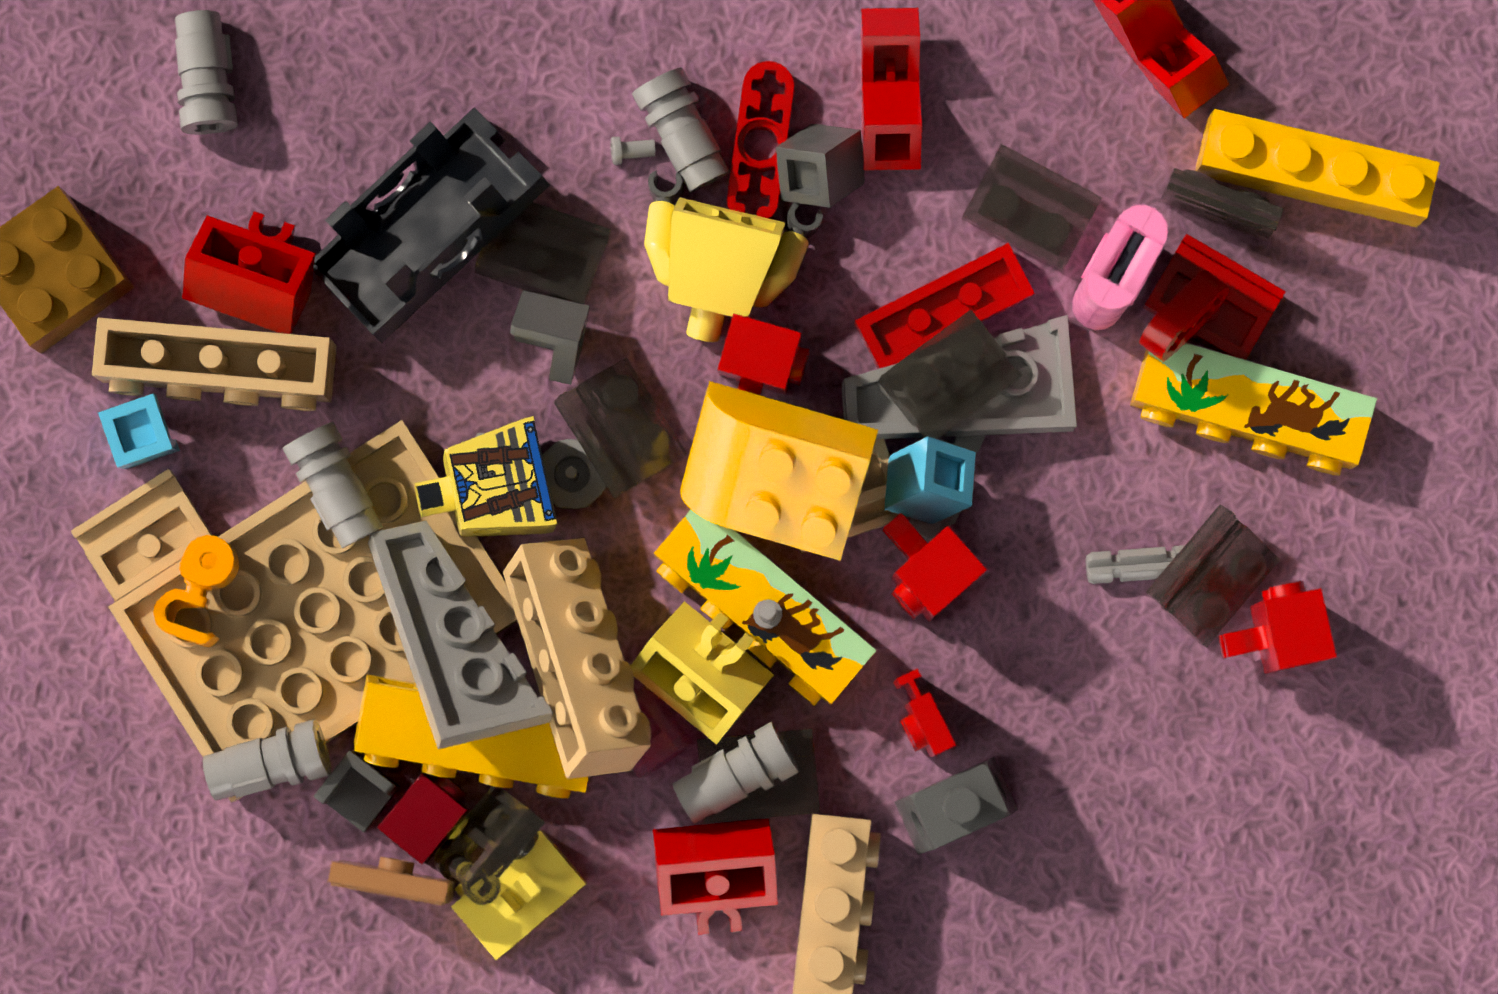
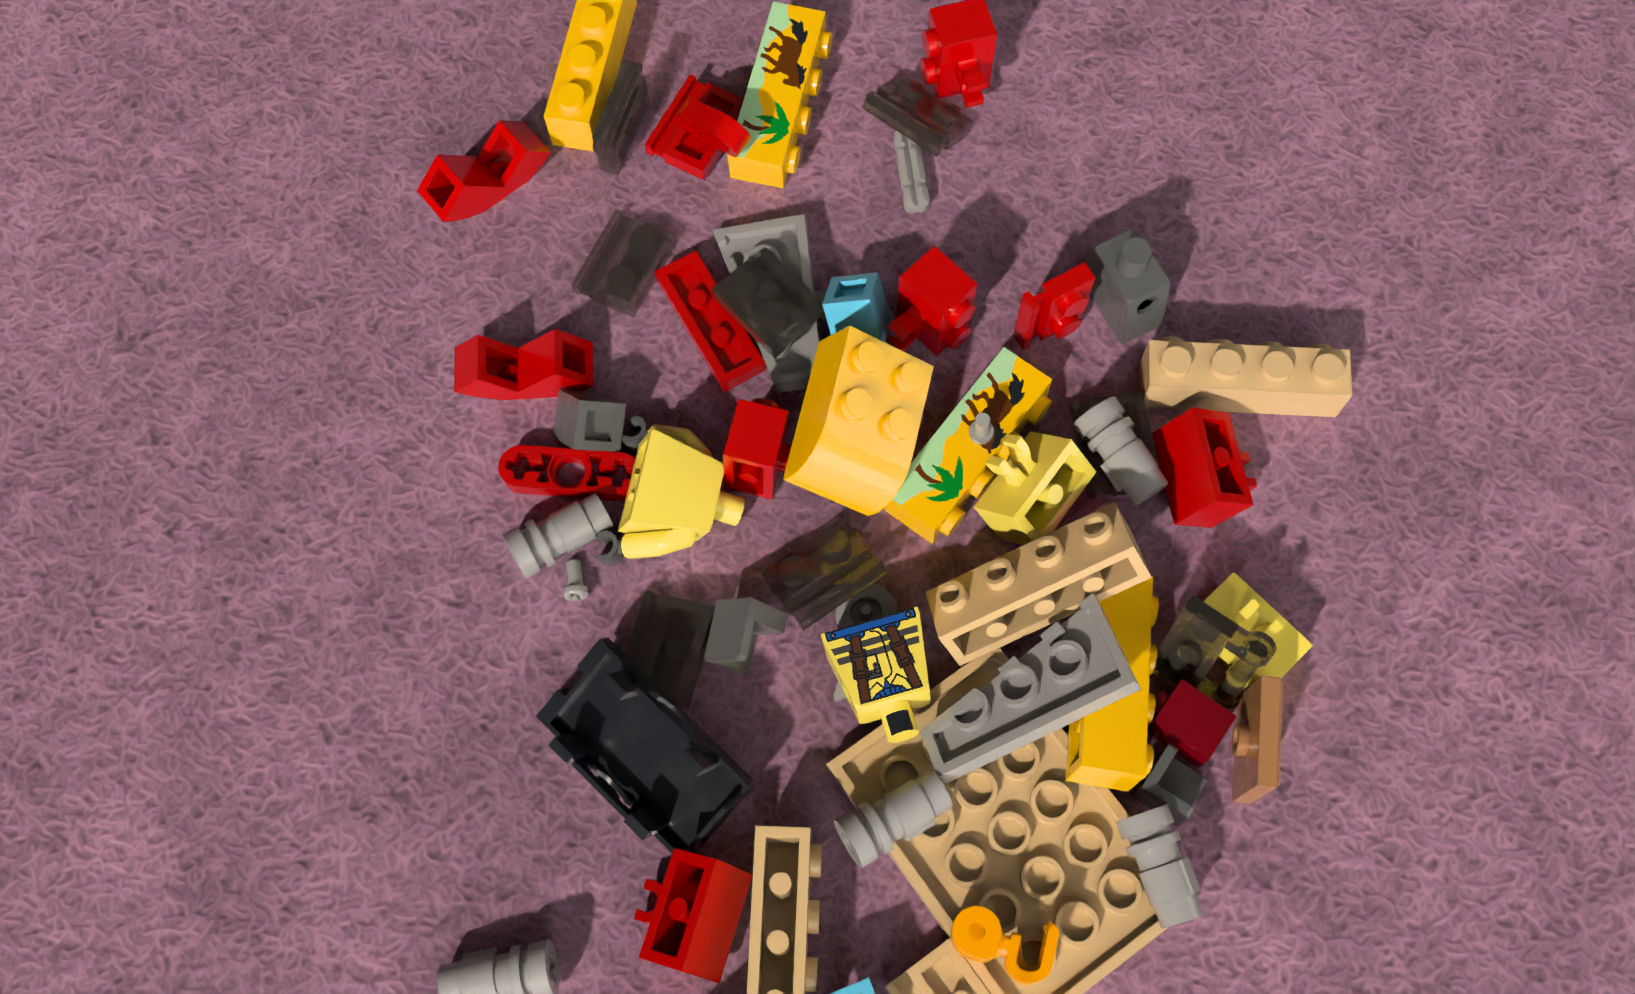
camera: 90 degrees left, 15 degrees down
(1120, 267) = (674, 167): bright pink piece -> none

